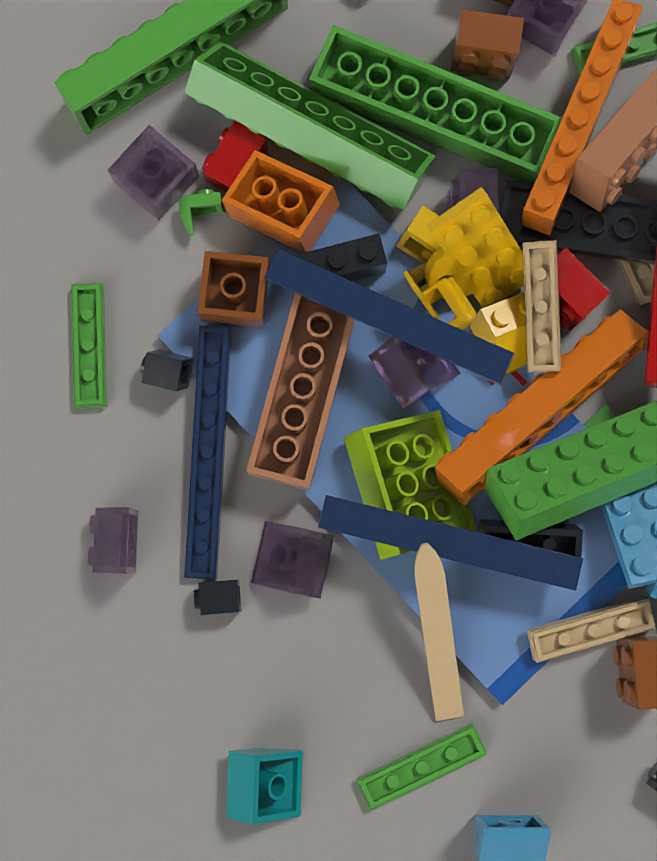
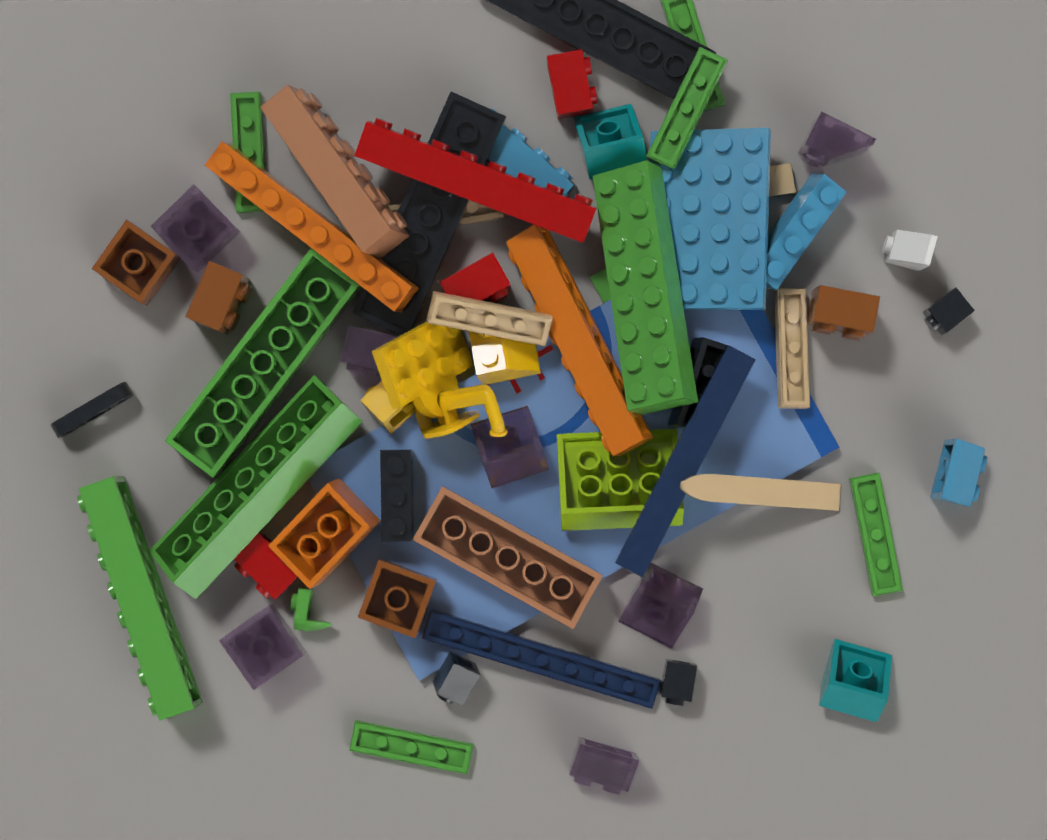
camera: 70 degrees left, 5 degrees up
(390, 317) = (466, 465): dark blue tile -> none

